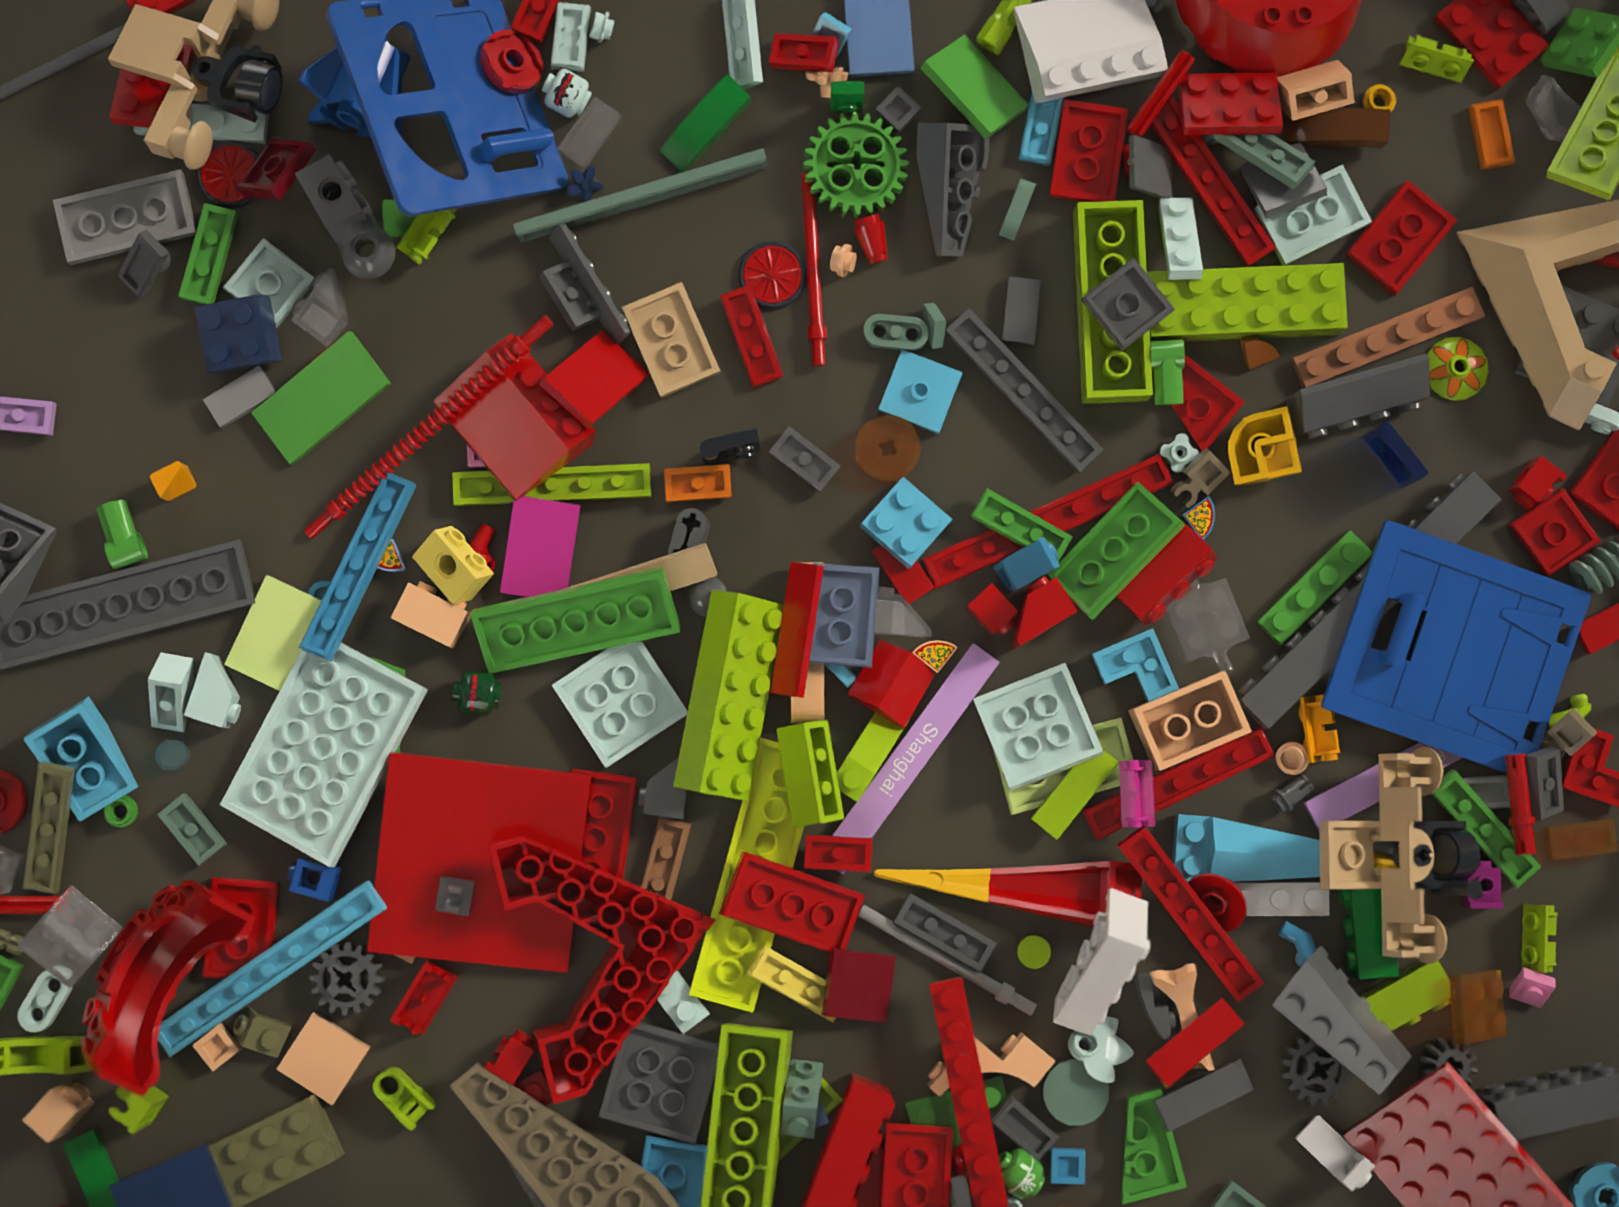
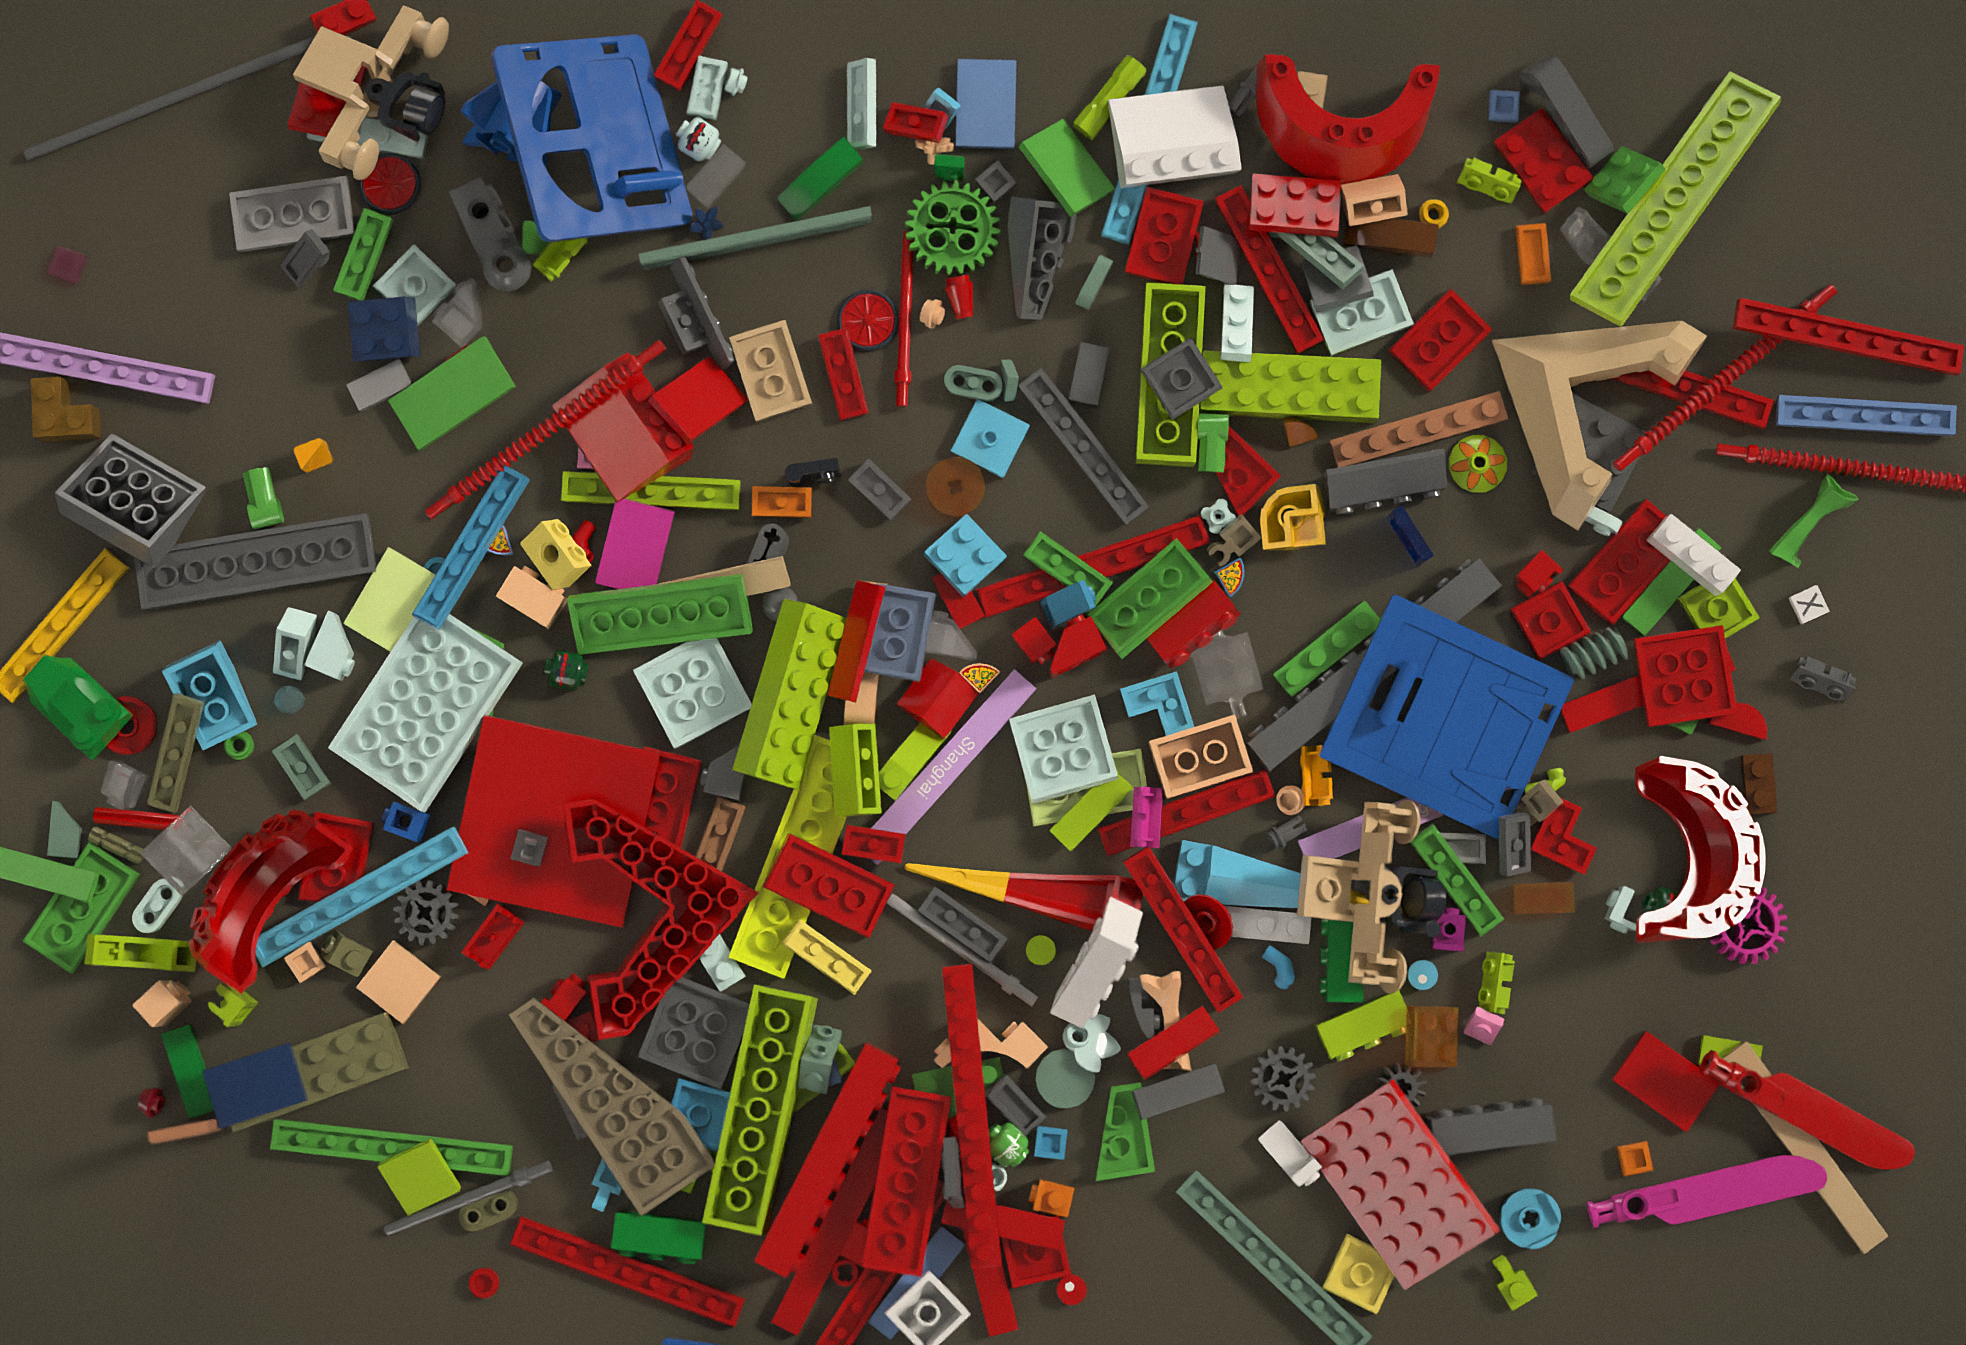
camera: 15 degrees right, 0 degrees up
(276, 168) = (431, 184): dark red tile -> none
(404, 1098) = (467, 1023): lime piece -> none
(500, 72) = (639, 113): red tile -> none
(842, 673) = (894, 685): medium azure tile -> none
(858, 985) = (880, 963): dark red tile -> none
(1160, 94) = (1233, 191): red axle -> none
(1341, 1022) = (1305, 1036): dark grey wedge -> none
(1459, 936) = (1422, 975): none -> medium azure tile
(1520, 804) = (1489, 860): red pin -> none

